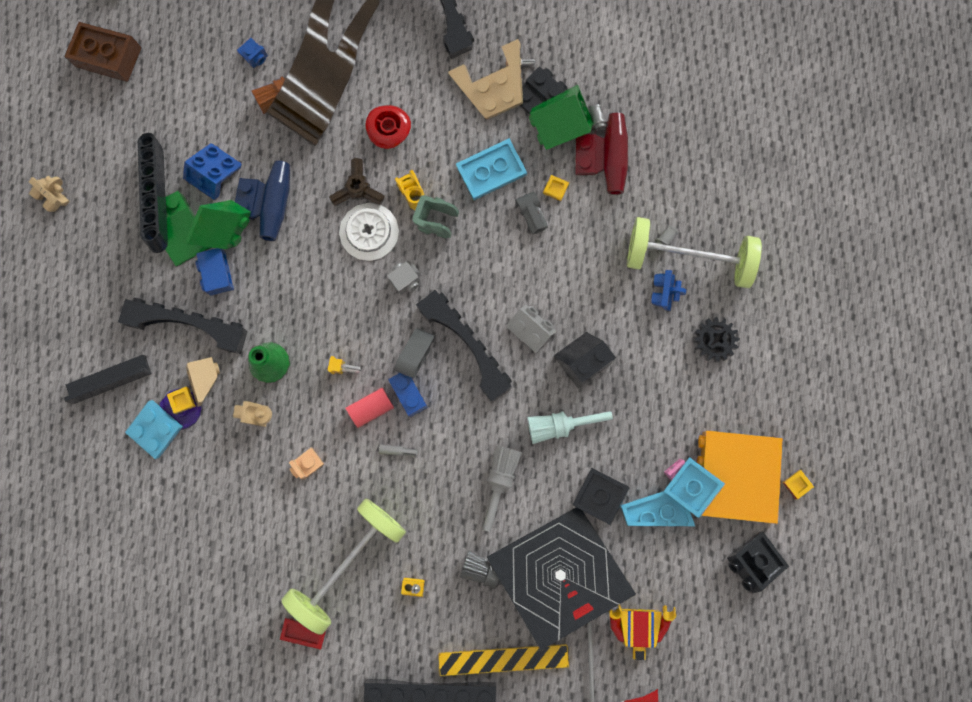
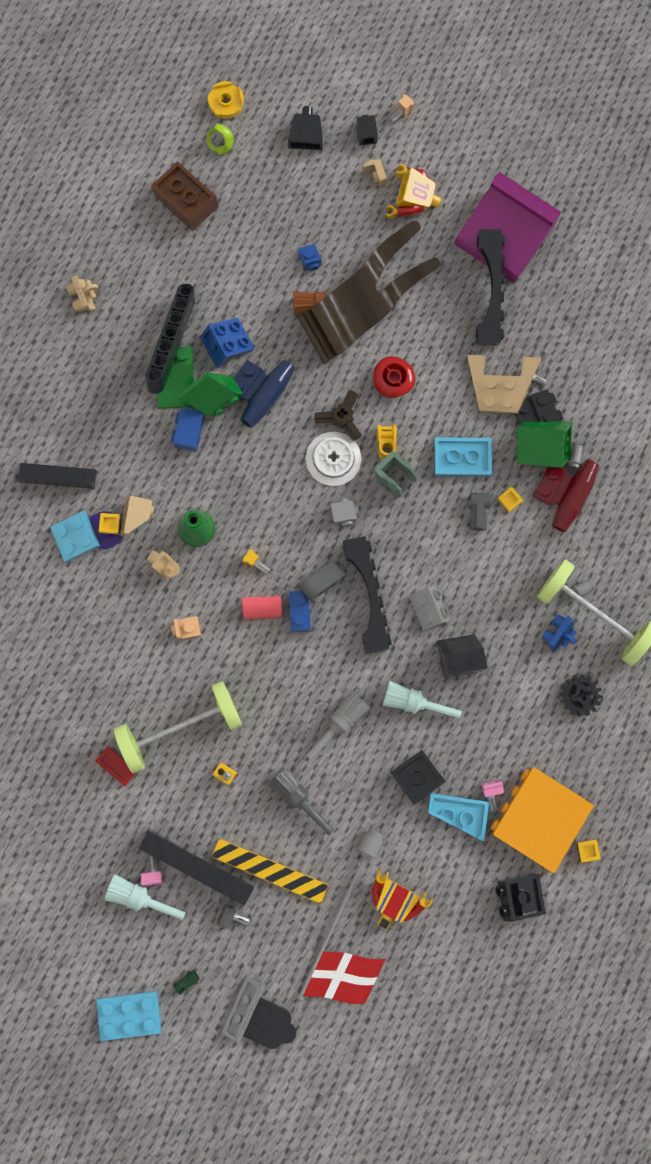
camera: 15 degrees right, 0 degrees up
(139, 315) = (109, 435): black arch -> none
(397, 450) = (267, 654): light grey pin -> none
(560, 577) = (351, 825): black sticker -> none
(694, 487) = (499, 808): medium azure plate -> none

